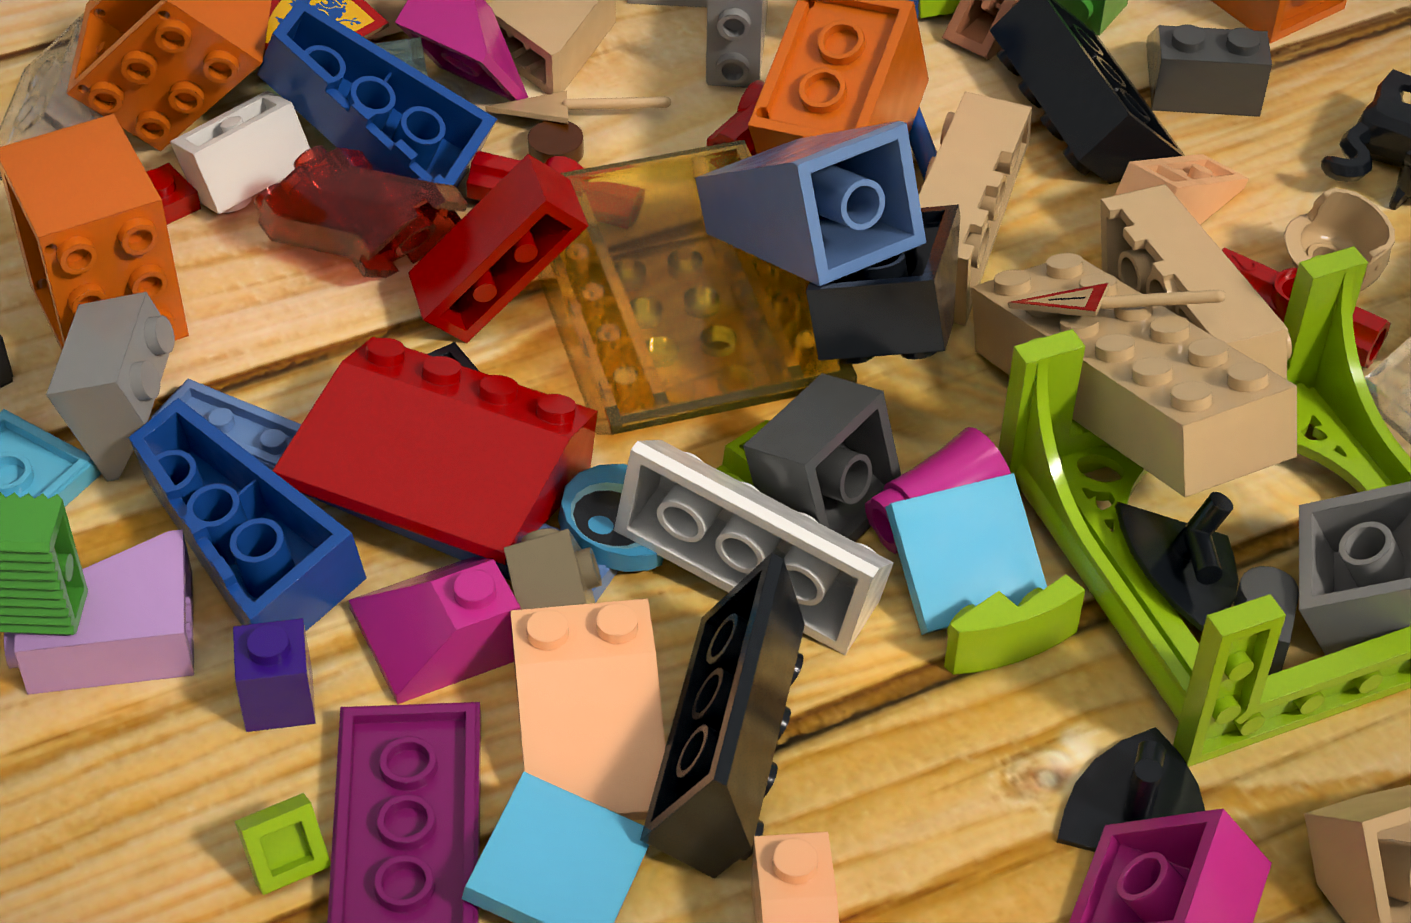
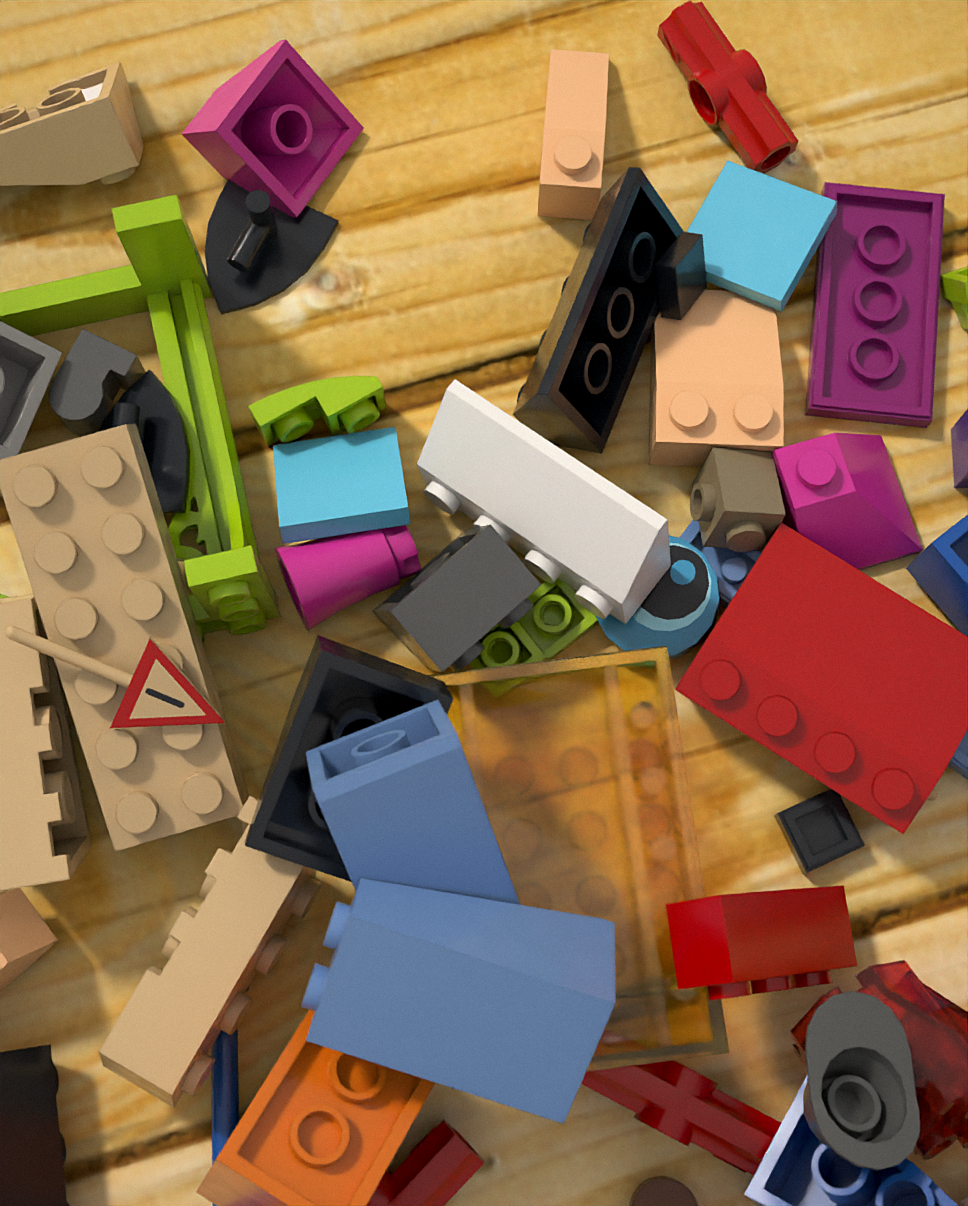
camera: 170 degrees left, 30 degrees up
(412, 136) = (860, 1082): none -> dark grey piece
(643, 781) = (681, 275): none -> black tile
(728, 110) = (466, 992): none -> medium blue slope

